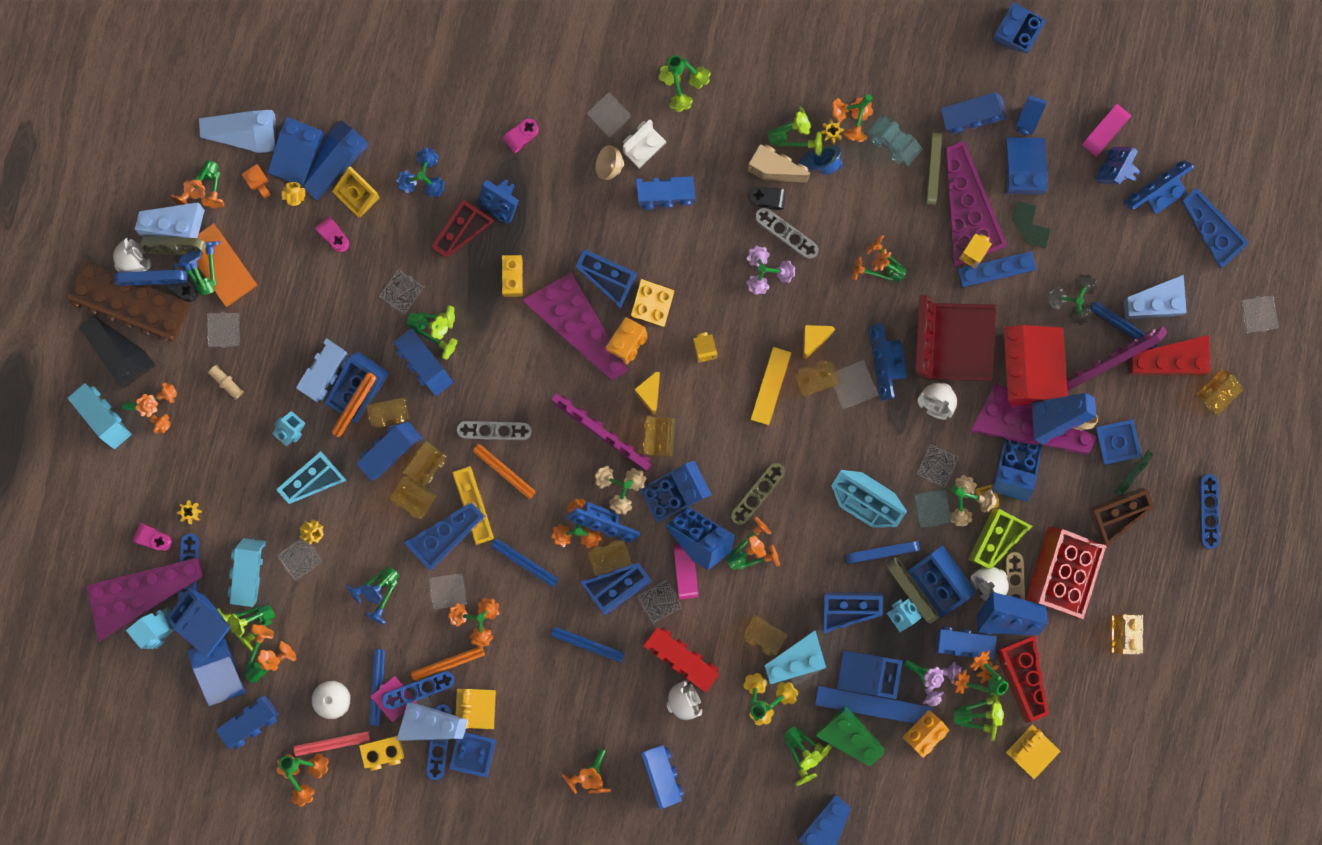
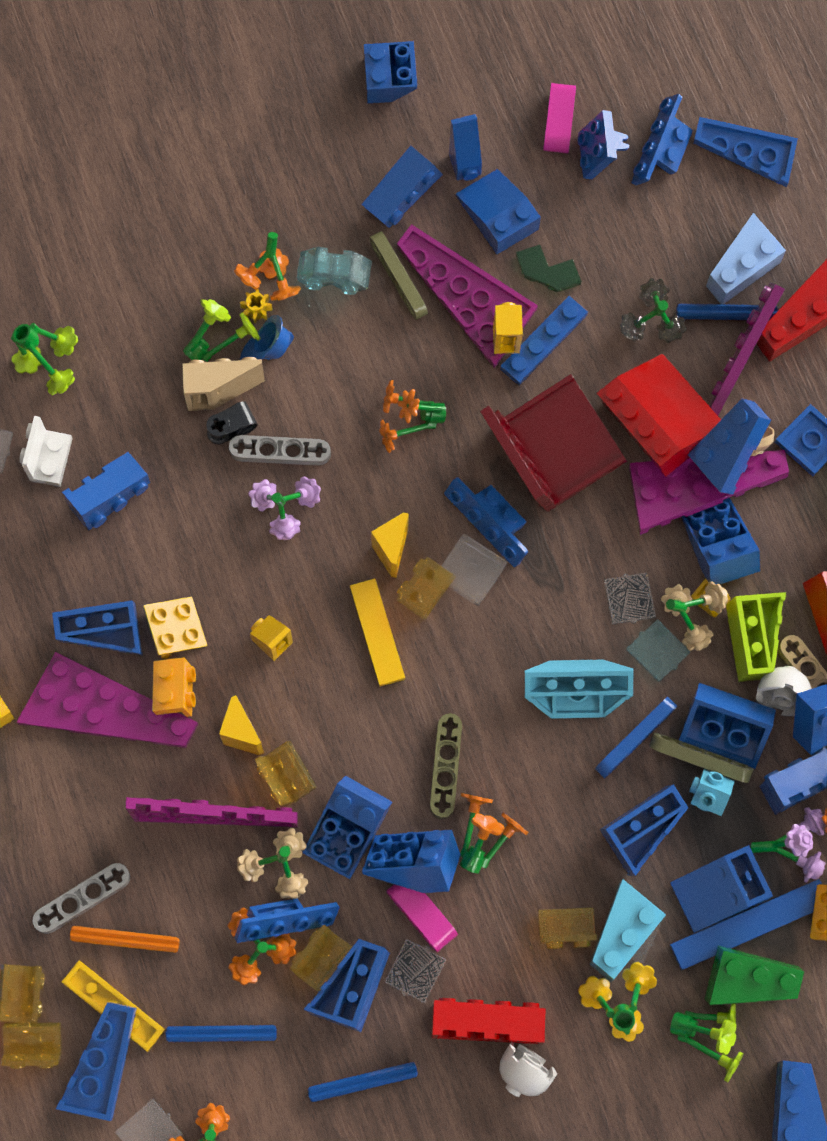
camera: 35 degrees left, 10 degrees down
(609, 163) = (19, 499): tan piece -> none
(939, 400) = (580, 523): white cylinder -> none

